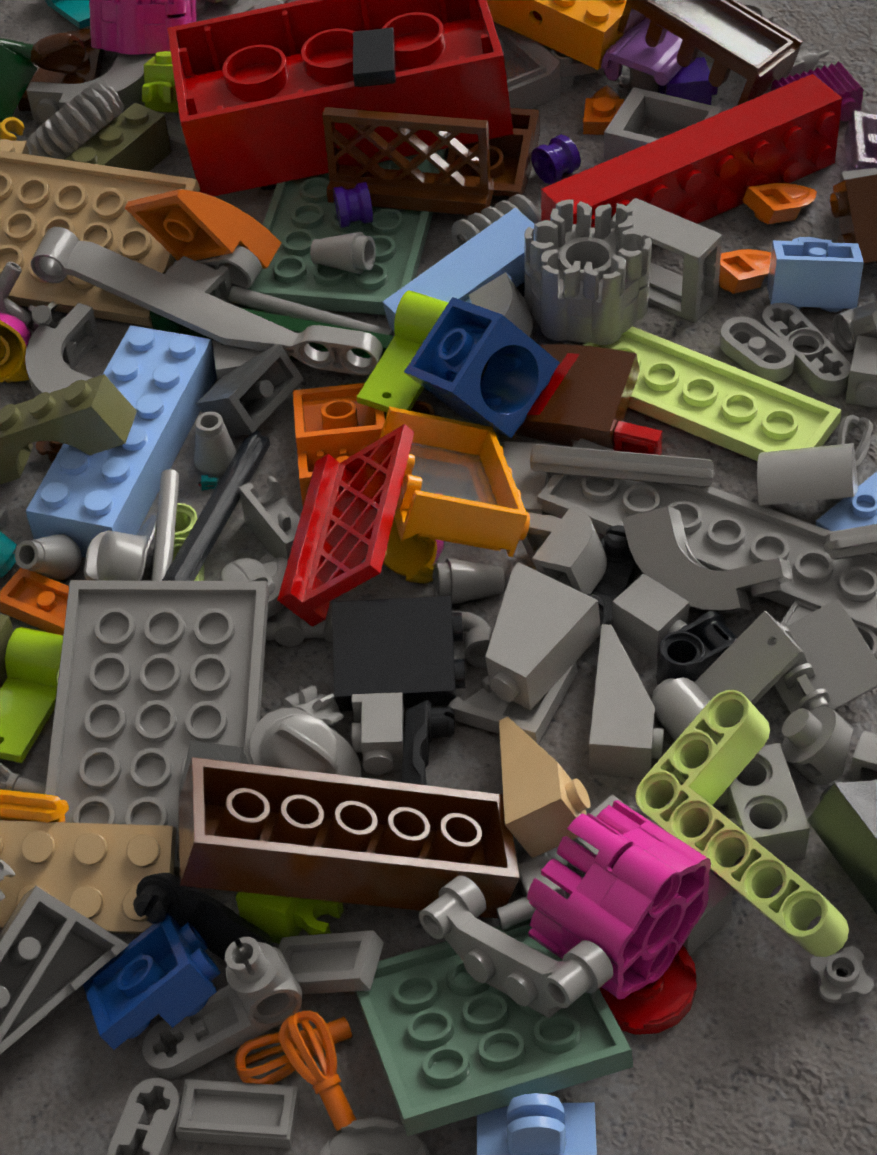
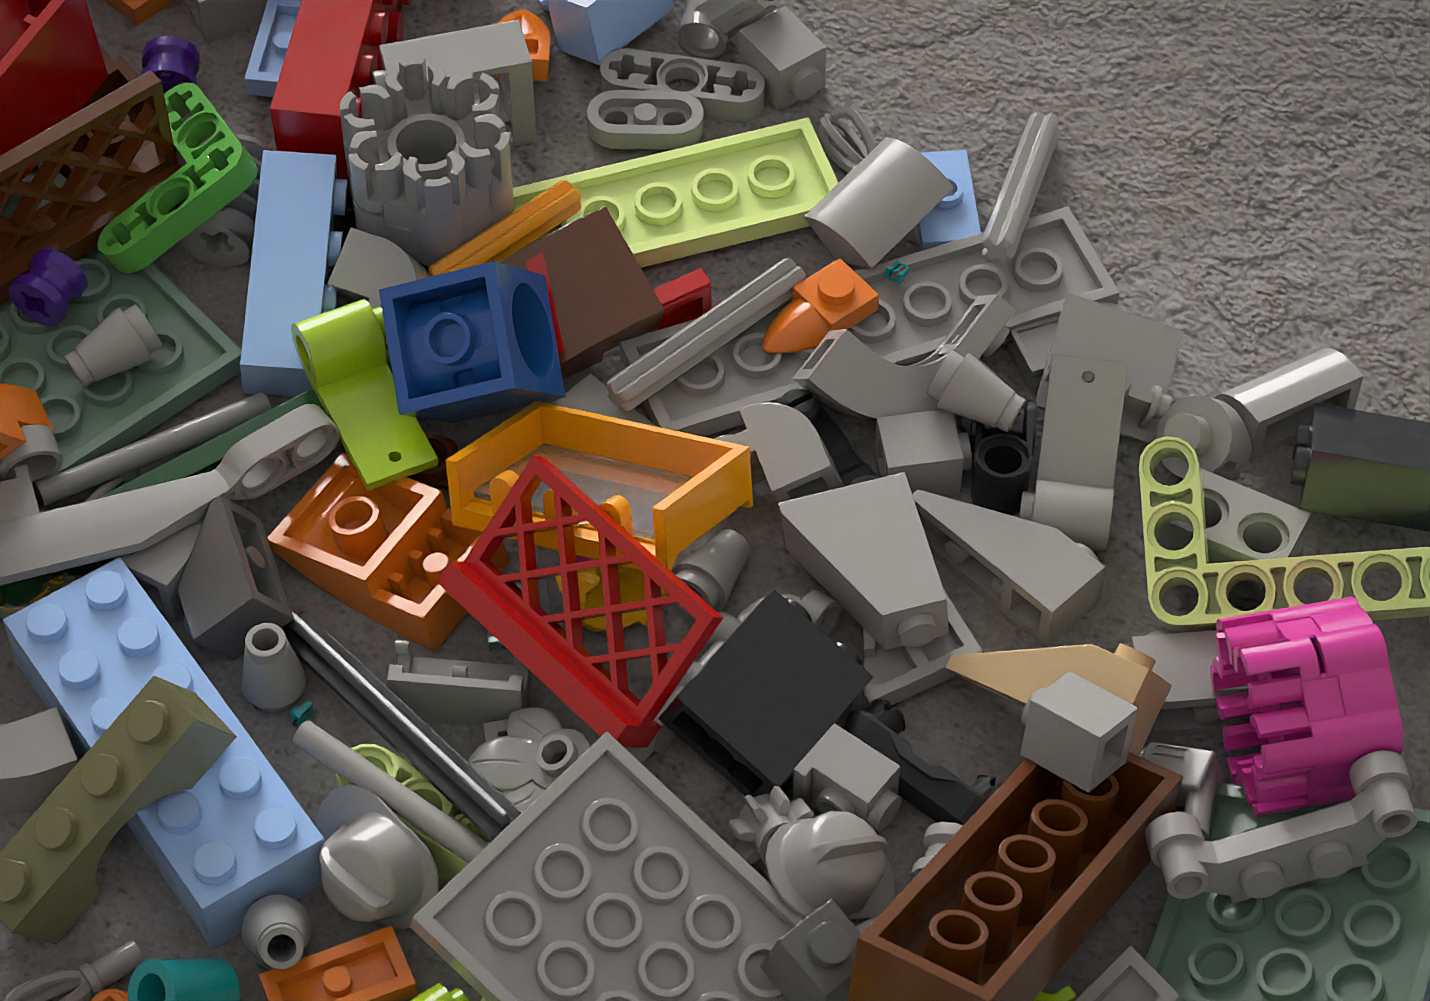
camera: 55 degrees left, 5 degrees up
(483, 794) = (1077, 730): none -> light grey brick
(484, 205) = (208, 182): none -> bright green beam
(642, 345) = (514, 230): none -> light orange axle
(703, 598) = (974, 392): none -> light grey cone
(704, 504) = (823, 302): none -> orange plate
(771, 519) = (897, 272): none -> teal piece

